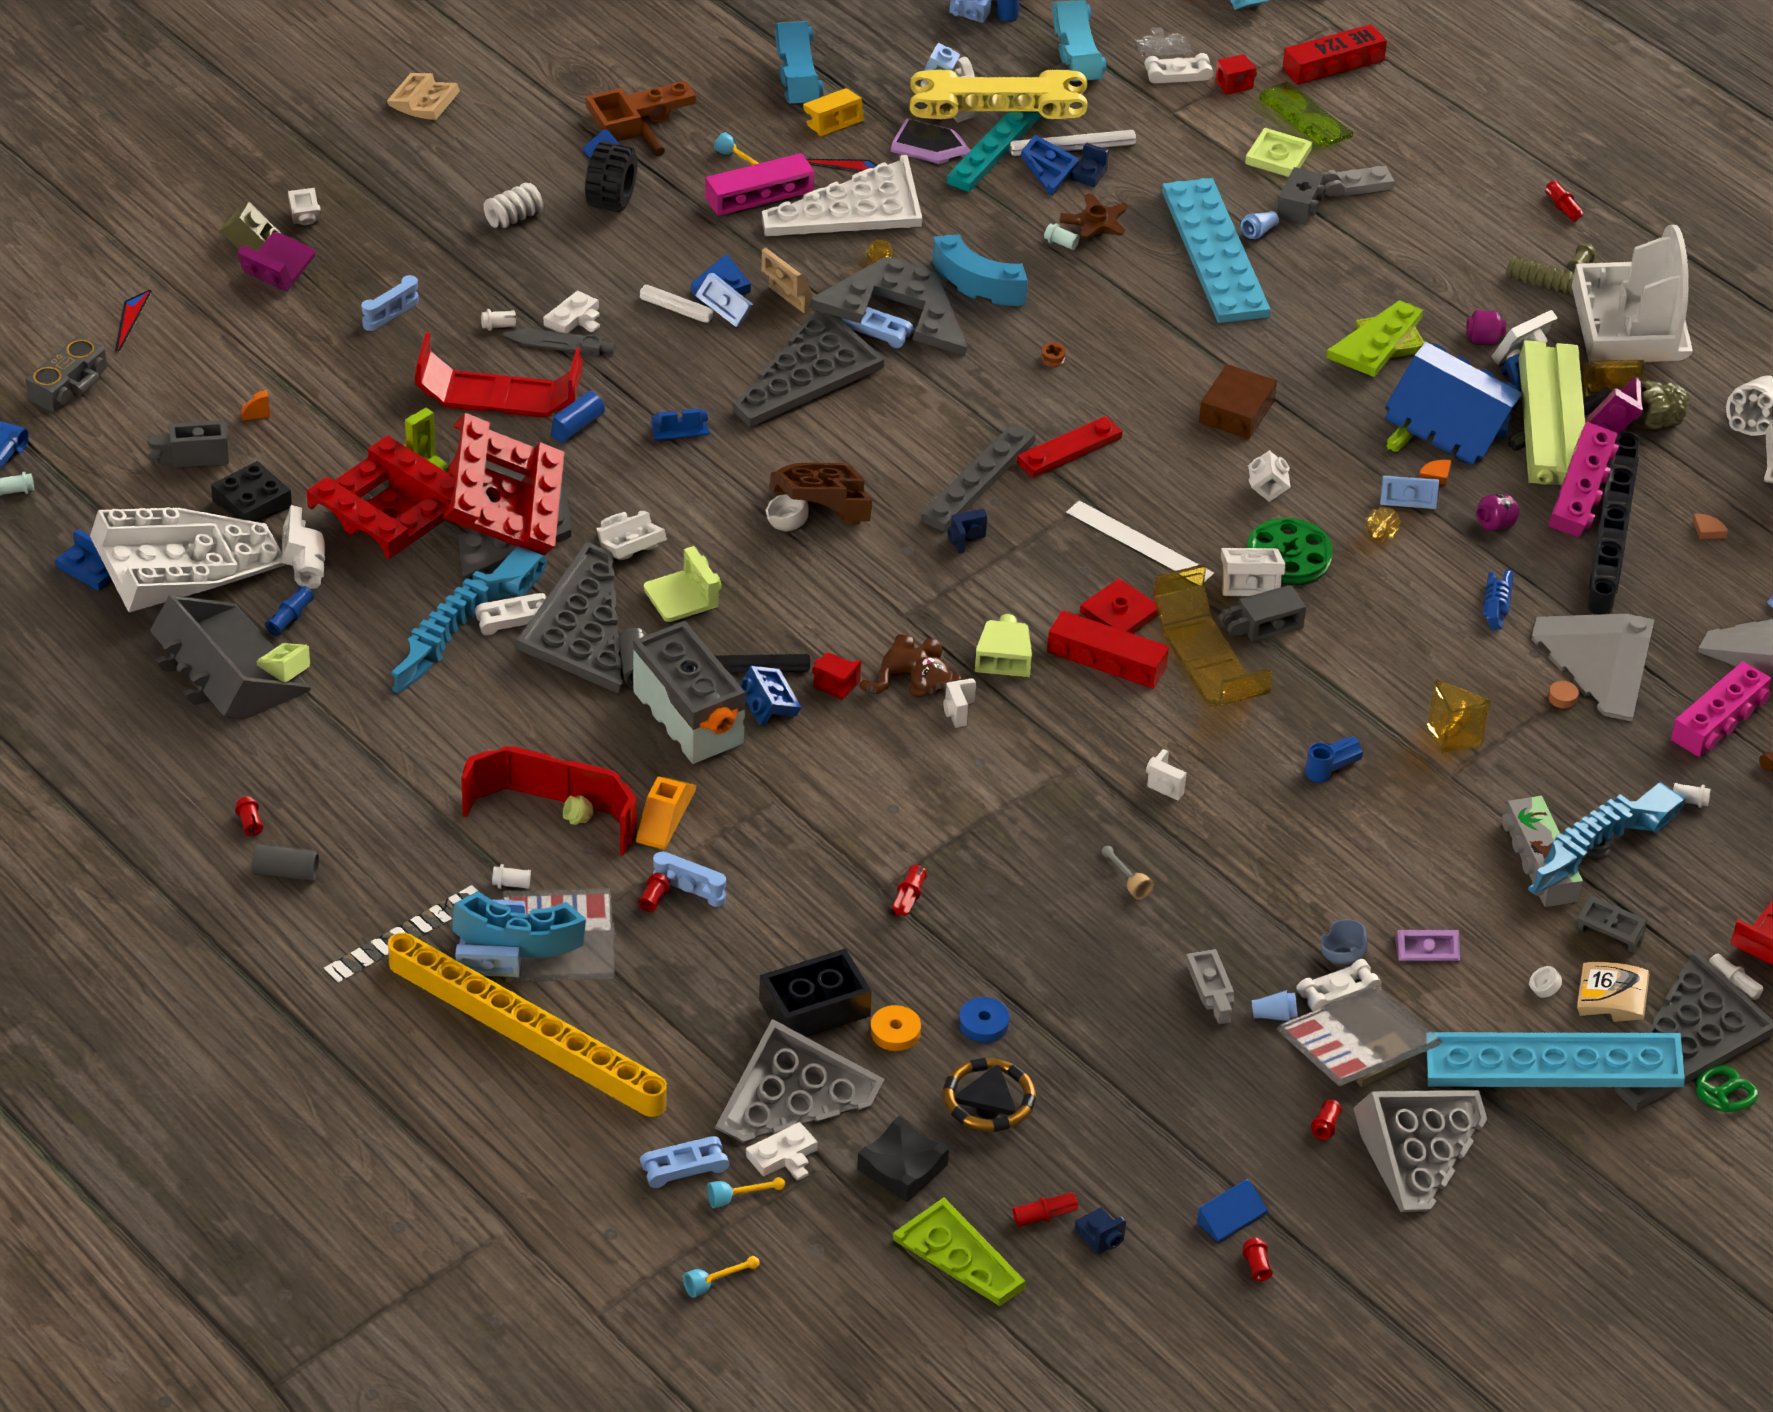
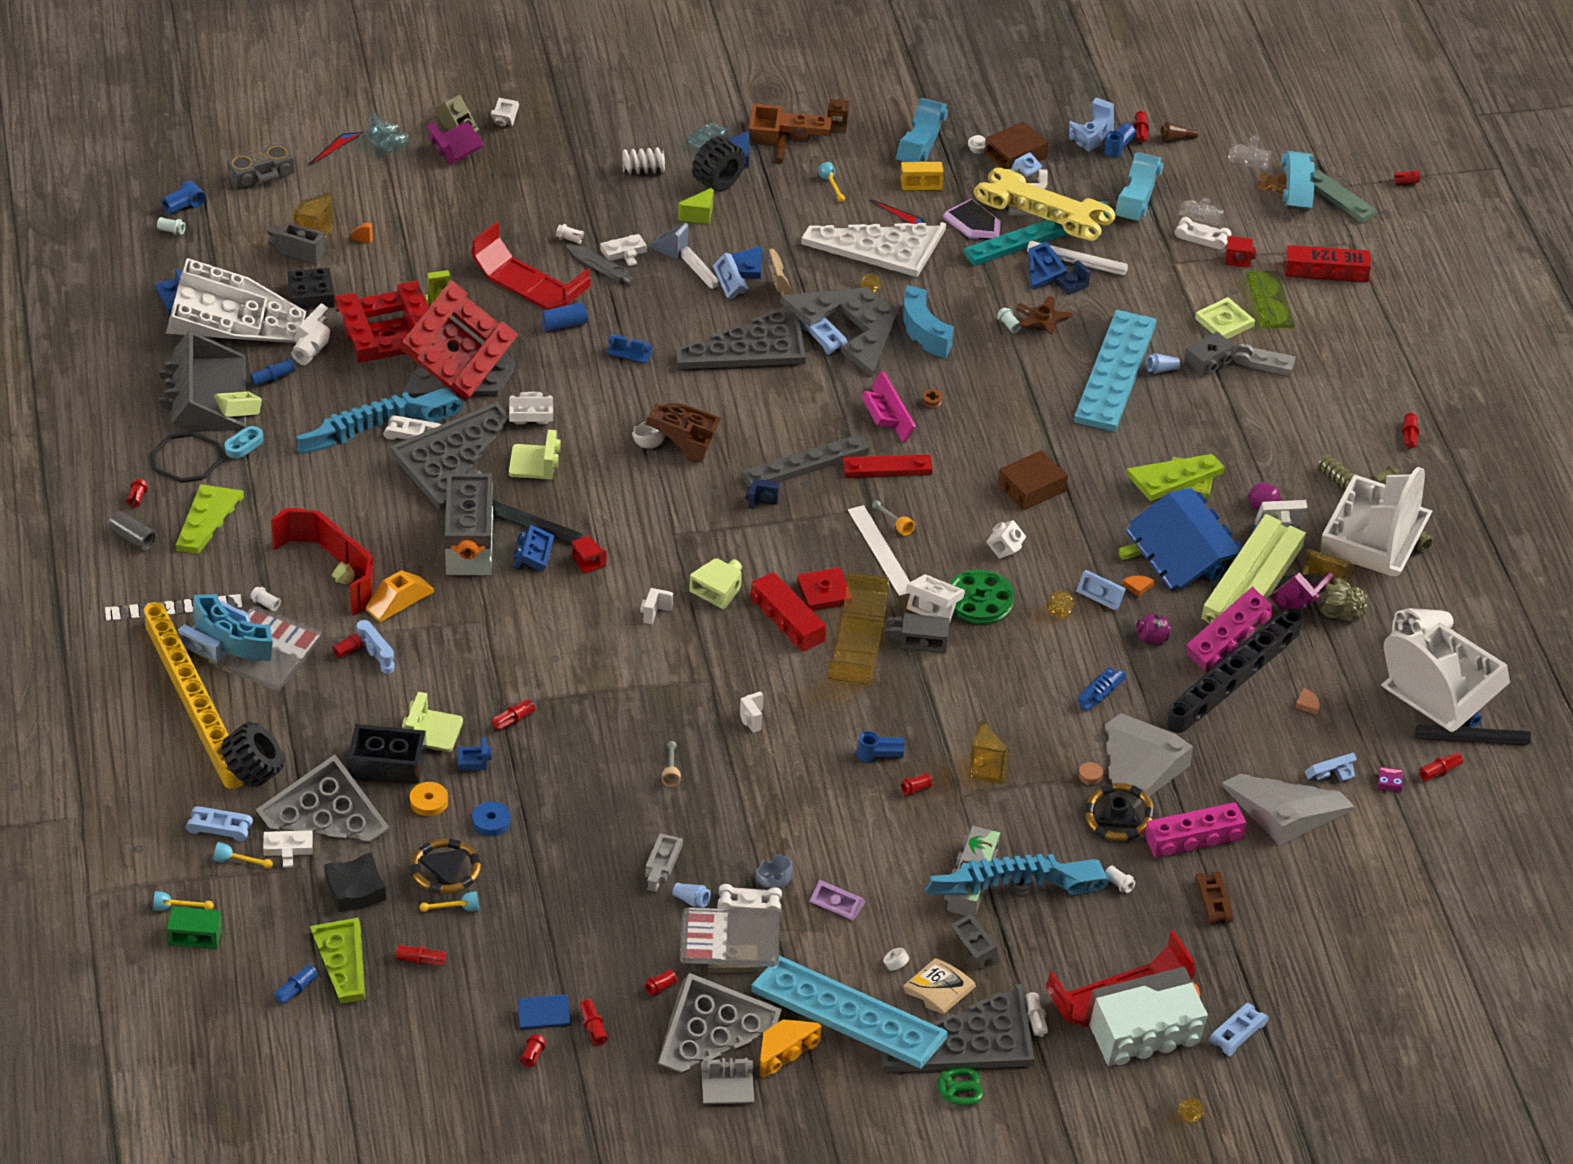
camera: 30 degrees right, 0 degrees up
(182, 283) = (382, 134): none -> clear light blue connector
(193, 400) = (315, 213): none -> clear yellow slope
(307, 766) = (183, 434): none -> black piece
(327, 705) = (244, 442): none -> medium azure plate
(354, 810) = (206, 515): none -> lime wing
(390, 304) = (506, 197): light blue plate -> none
(423, 96) = (650, 66): tan slope -> none
(559, 152) = (705, 133): none -> clear light blue slope
(621, 236) = (697, 208): none -> lime slope
(622, 284) = (672, 241): none -> sand blue slope
(671, 1061) = (252, 754): none -> black tyre
(687, 69) = (839, 111): none -> reddish brown window
(759, 184) = (822, 206): dark pink brick -> none
(765, 1294) = (194, 927): none -> green brick
(832, 937) = (440, 727): none -> yellowish green bracket
(861, 56) = (977, 144): none -> white plate
(907, 44) = (1014, 143): none -> reddish brown brick
(910, 957) = (474, 757): none -> blue bracket
(924, 665) = (649, 570): reddish brown animal -> none
(933, 1306) = (295, 984): none -> blue axle
(1020, 381) = (888, 408): none -> dark pink bracket
(1045, 1124) = (468, 902): none -> hinge
(1101, 1230) = (447, 985): dark blue bracket -> none
(1144, 503) = (903, 524): none -> light orange hinge
(1294, 1197) = (593, 1023): none -> red axle
(1398, 786) = (915, 784): none -> red pin
(1489, 1196) = (727, 1081): none -> light grey hinge
(1516, 1127) = (786, 1043): none -> light orange slope
(1630, 723) = (1118, 812): none -> black piece

